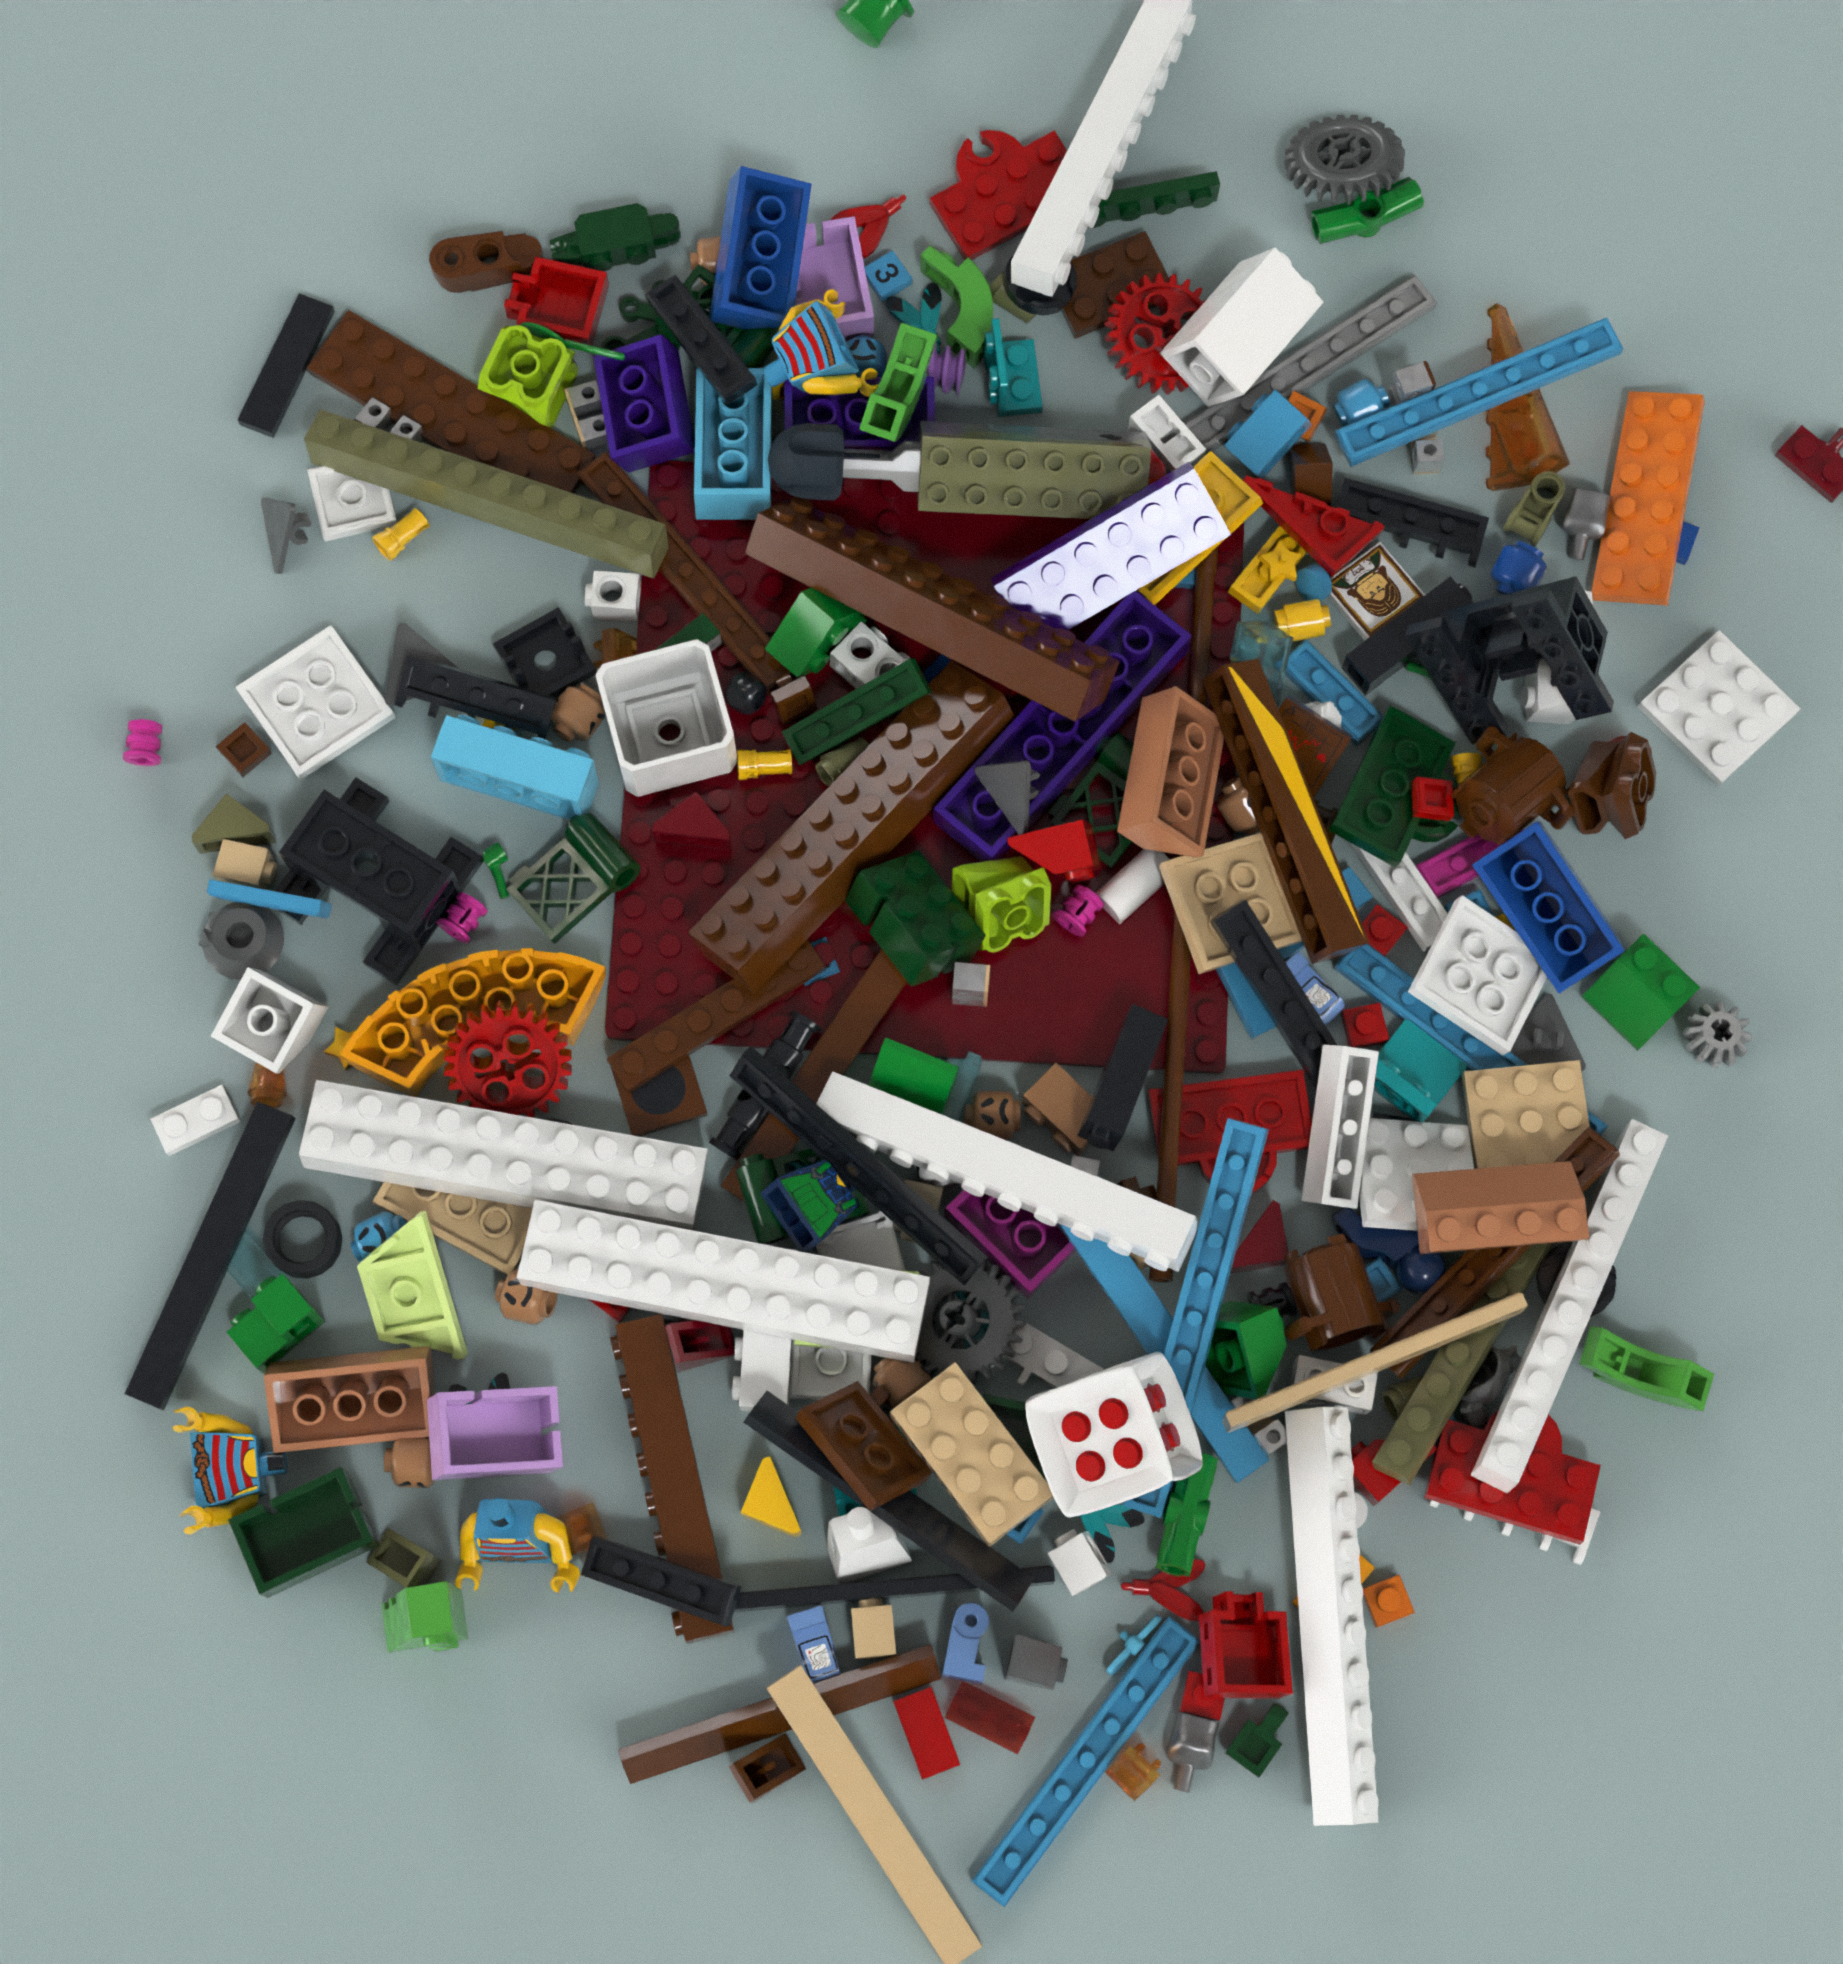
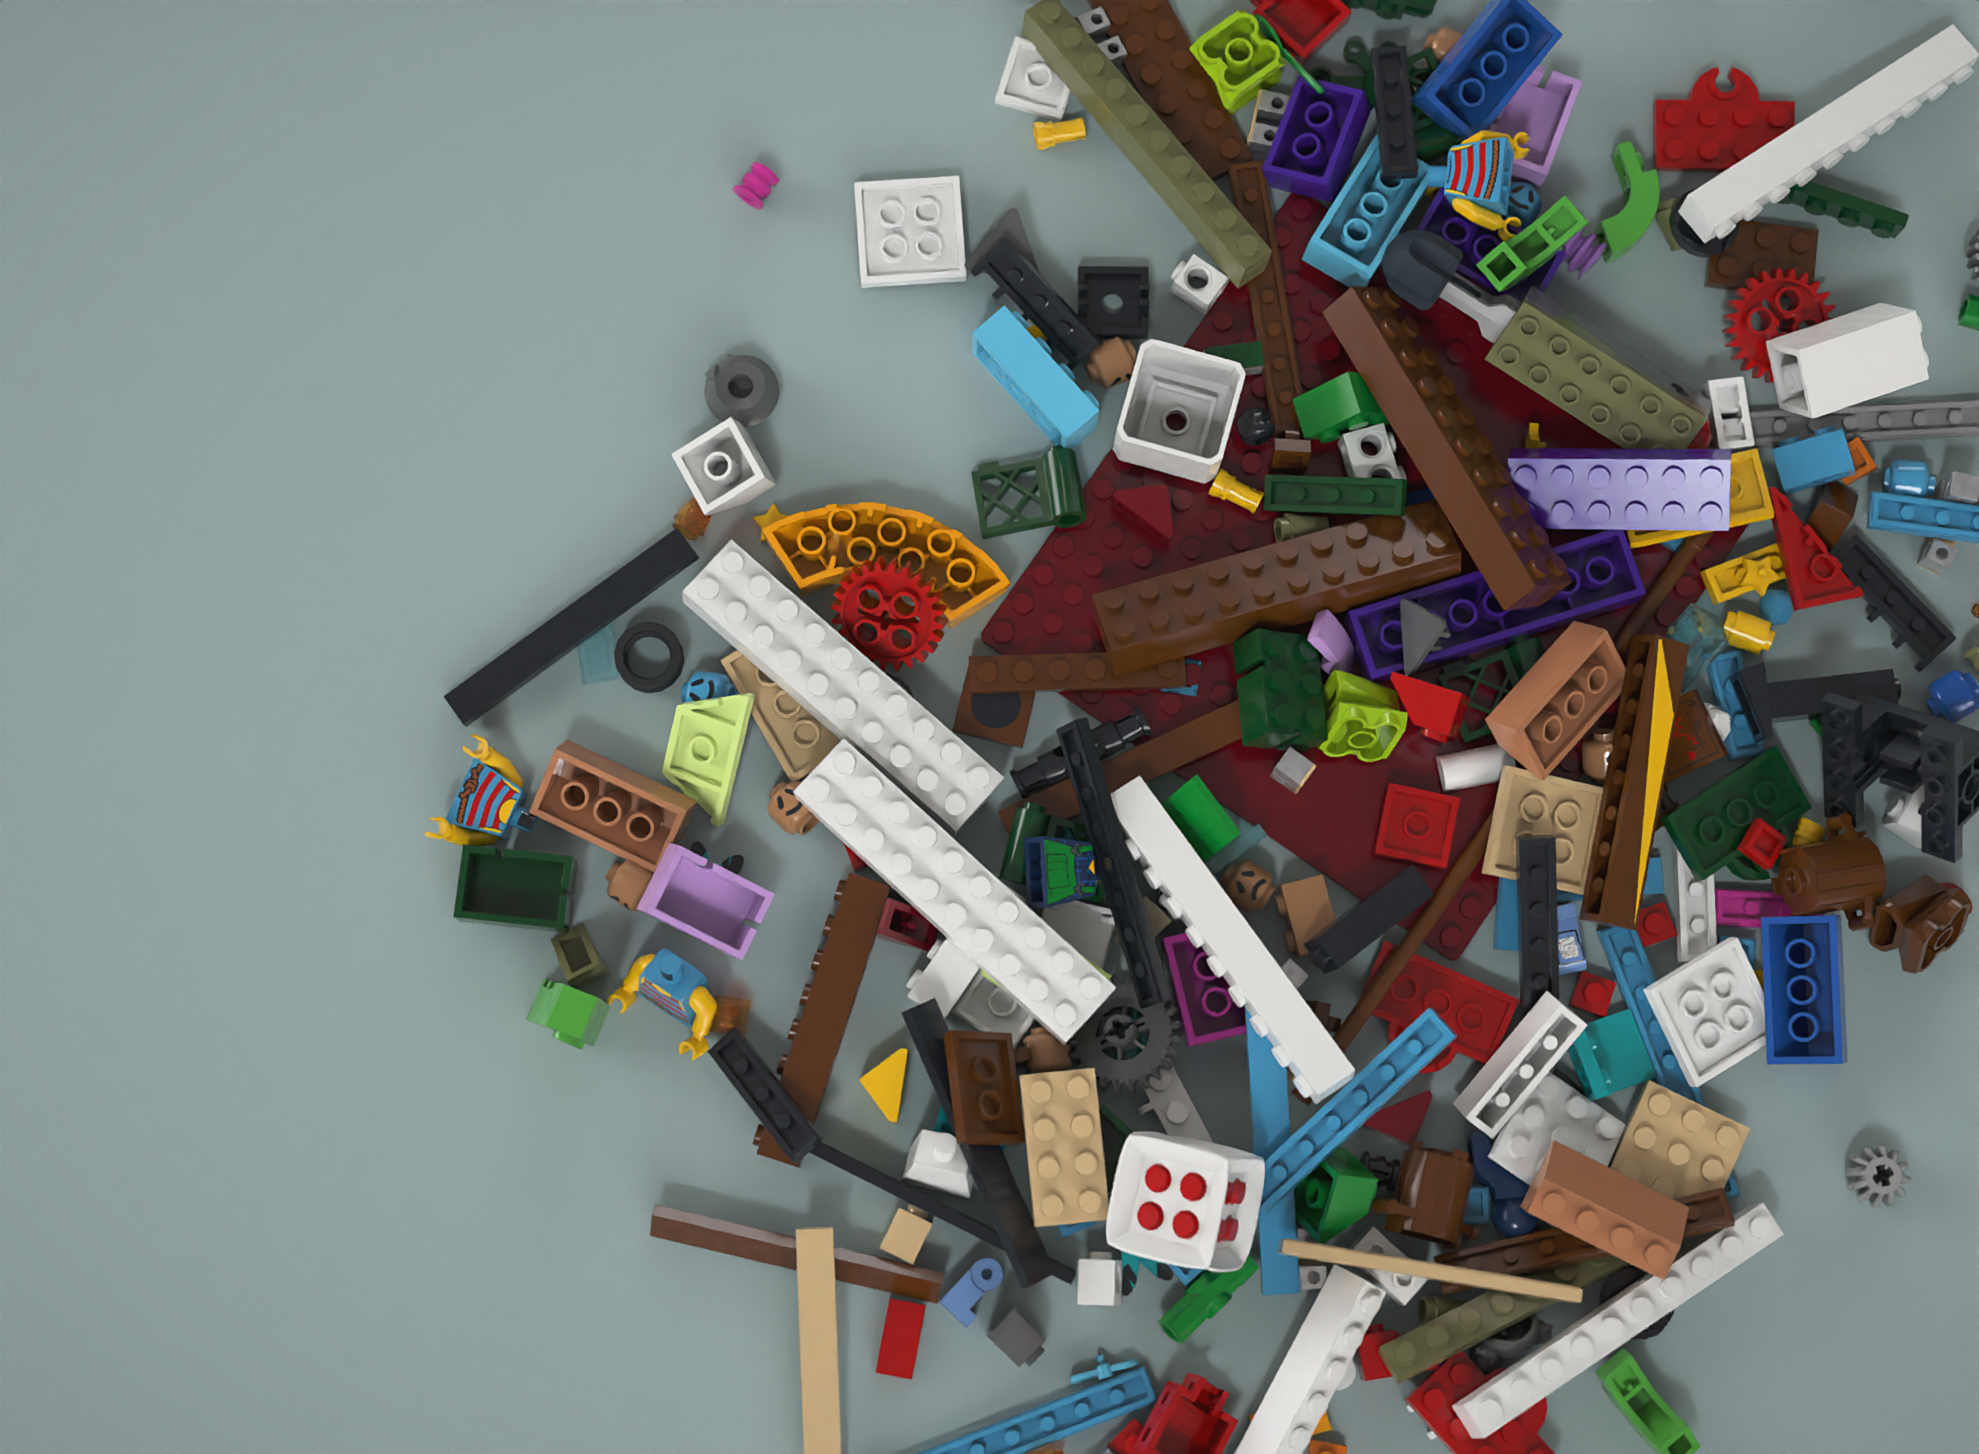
camera: 30 degrees right, 5 degrees up
(195, 1120) = (622, 512): white plate -> none
(231, 822) = (784, 294): olive slope -> none
(243, 749) = (831, 237): reddish brown plate -> none
(245, 865) = (777, 333): tan brick -> none
(269, 899) = (779, 371): dark azure tile -> none
(276, 1324) = (588, 713): green brick -> none
(281, 527) = (967, 72): dark grey piece -> none
(403, 890) = (888, 428): black piece -> none
(451, 923) = (923, 474): dark pink bush -> none
(493, 857) = (976, 441): green hand -> none
(615, 646) = (1175, 328): clear orange tile -> none
(767, 1768) = (761, 1289): reddish brown slope -> none
(814, 1643) = (854, 1217): medium blue leg -> none
(875, 220) = (1599, 91): red piece -> none
(887, 276) = (1581, 145): dark azure tile -> none
(929, 314) = (1589, 201): teal piece -> none
(935, 845) = (1332, 642): none -> lavender slope
(989, 1717) = (957, 1357): clear red hinge -> none
(1004, 559) = (1532, 438): none -> yellow piece
(1012, 374) = (1633, 287): teal bracket -> none
(1067, 917) = (1405, 762): dark pink bush -> none
(1114, 968) = (1416, 826): none -> red plate
(1162, 1590) = (1152, 1342): red piece -> none
(1343, 673) = (1753, 697): none -> black slope
(1373, 591) = (1822, 642): tile -> none
(1546, 1037) = (1735, 1092): dark grey piece -> none
(1640, 992) = (1836, 1103): green slope -> none

